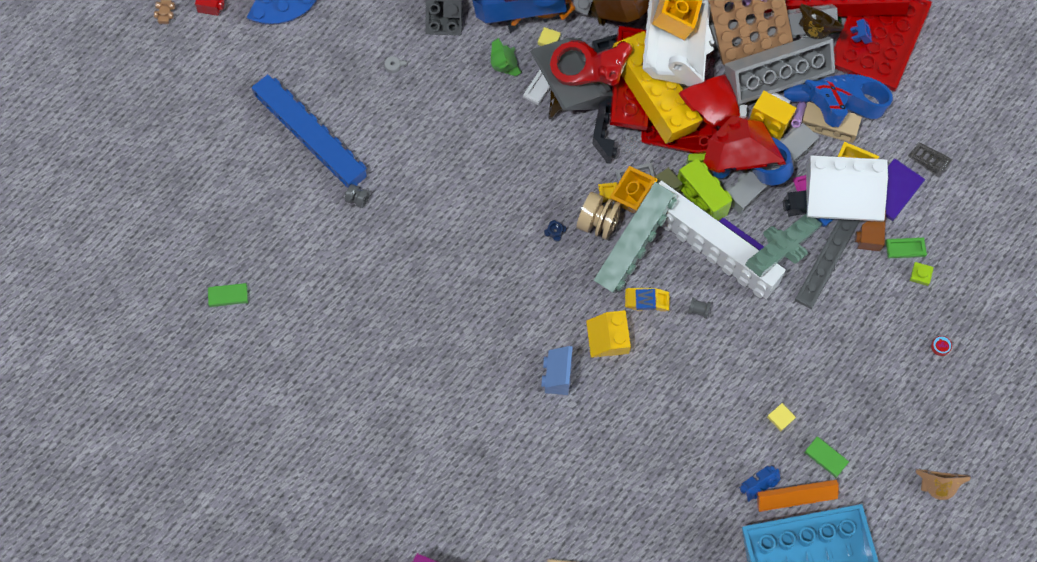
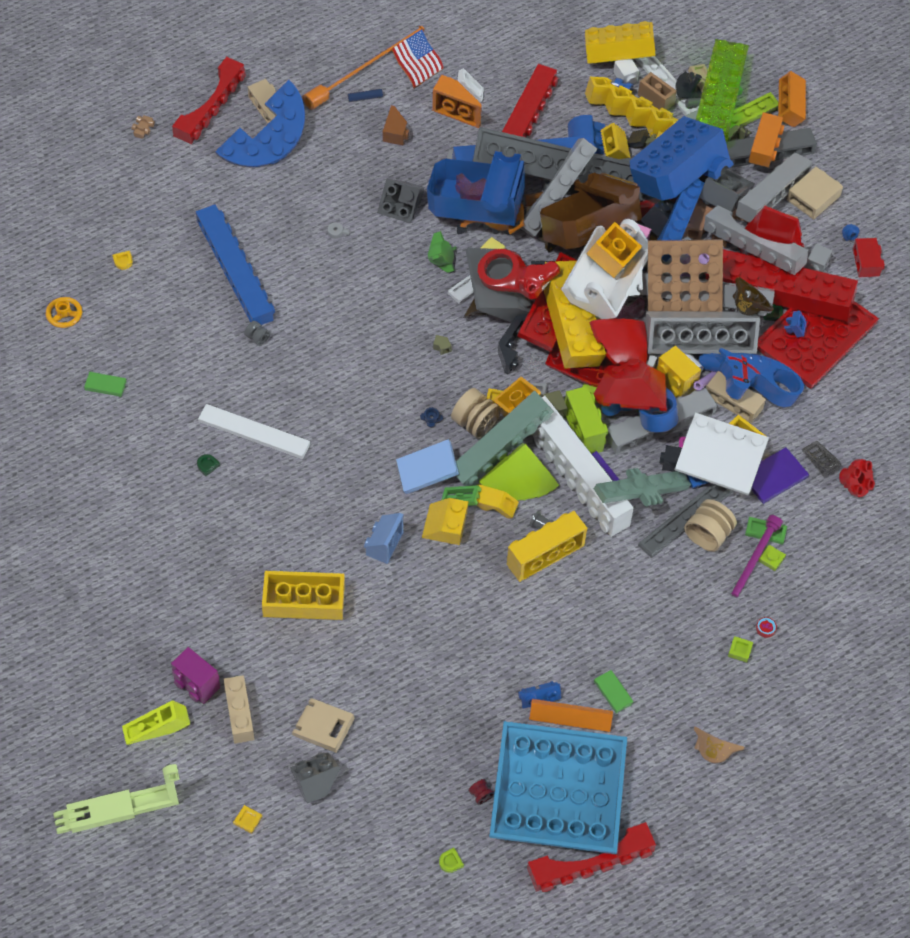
camera: 15 degrees right, 10 degrees down
(154, 224) = (63, 310): none -> light orange piece
(197, 158) = (123, 260): none -> yellow tile
(358, 347) = (207, 464): none -> dark green tile
(391, 299) = (254, 431): none -> white tile
(503, 456) = (303, 595): none -> yellow brick
(538, 153) = (442, 345): none -> olive piece
(572, 285) = (427, 466): none -> light blue tile
(628, 302) = (471, 498): none -> bright green tile
(645, 299) = (491, 497): blue tile -> none
(663, 267) = (521, 475): none -> lime brick
(714, 331) = (546, 545): none -> yellow brick
(781, 417) = (583, 643): light yellow tile -> none
(858, 261) = (710, 525): none -> tan wheel
(871, 235) = (739, 504): dark orange slope -> none
(912, 241) = (773, 524): none -> magenta piece
(927, 376) = (740, 649): none -> lime plate
(971, 169) = (858, 477): none -> red plate

